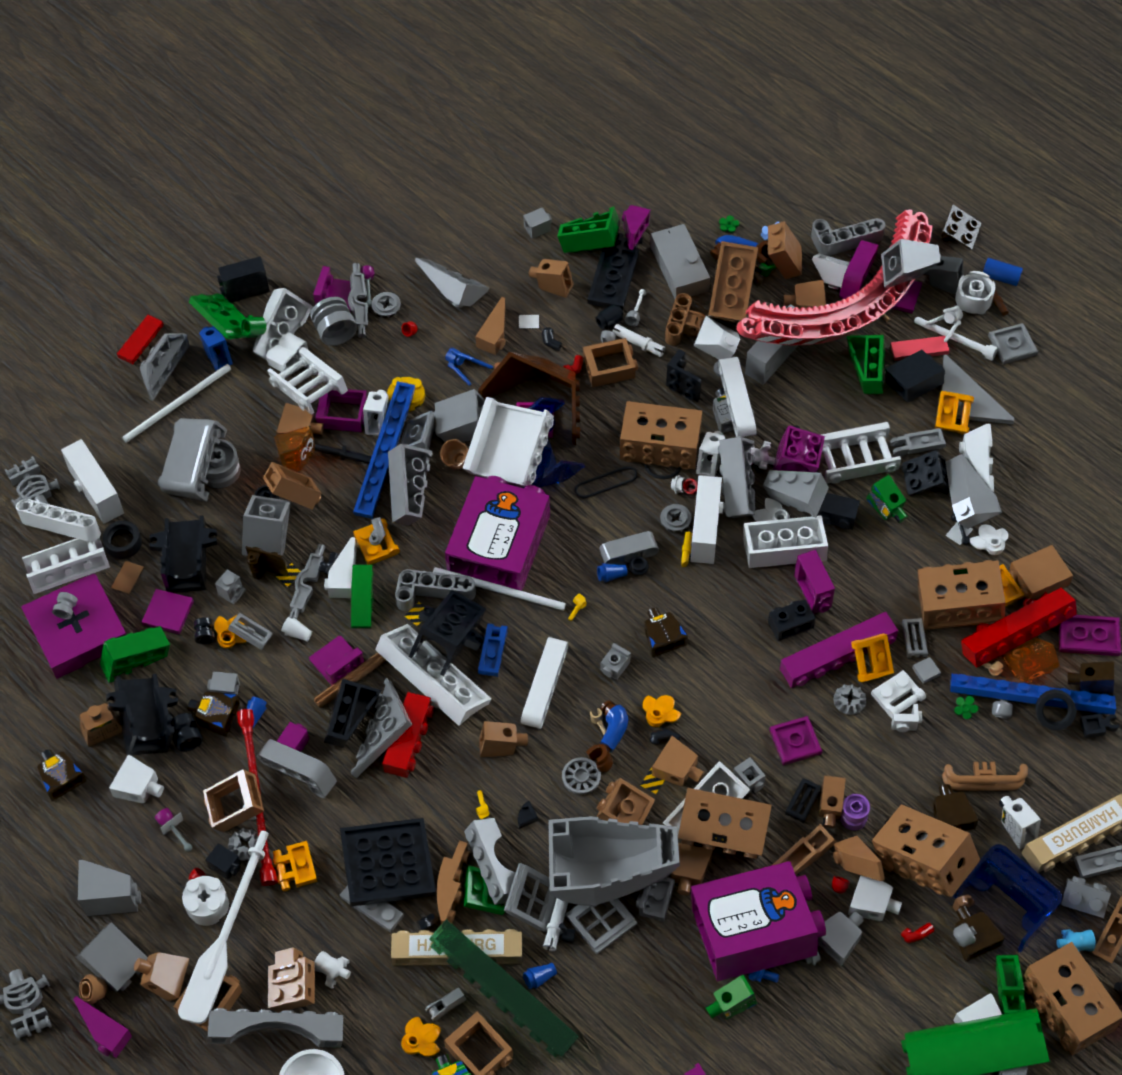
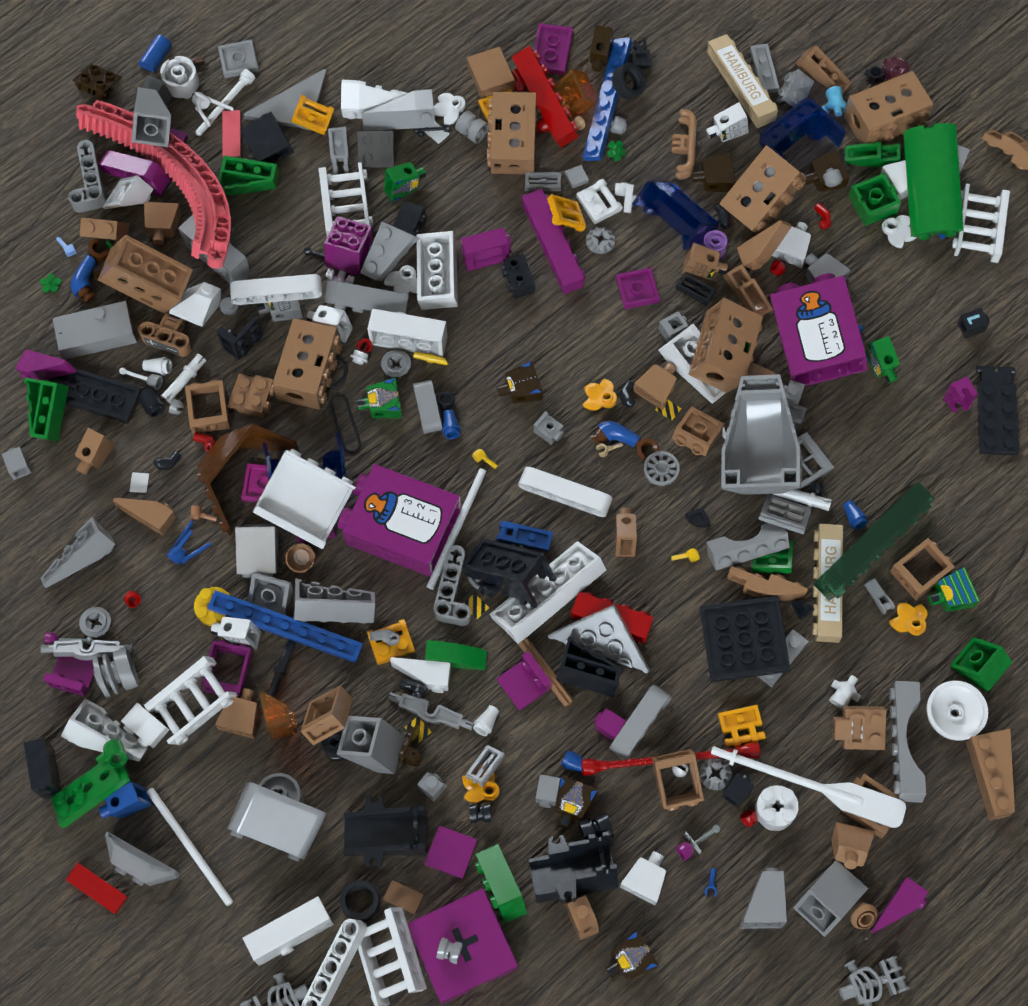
camera: 85 degrees left, 10 degrees up
(128, 845) = (711, 883): none -> blue hand
(624, 391) = (251, 395): none -> medium nougat plate
(632, 509) = (382, 400): none -> torso
(649, 319) = (159, 365): none -> white cone
(680, 899) = (794, 391): none -> light grey brick
(902, 773) = (677, 210): none -> clear blue windscreen
(908, 1021) = (901, 231): none -> white plate
(945, 986) = (874, 199): none -> green brick
(968, 553) = (471, 126): none -> light grey wheel

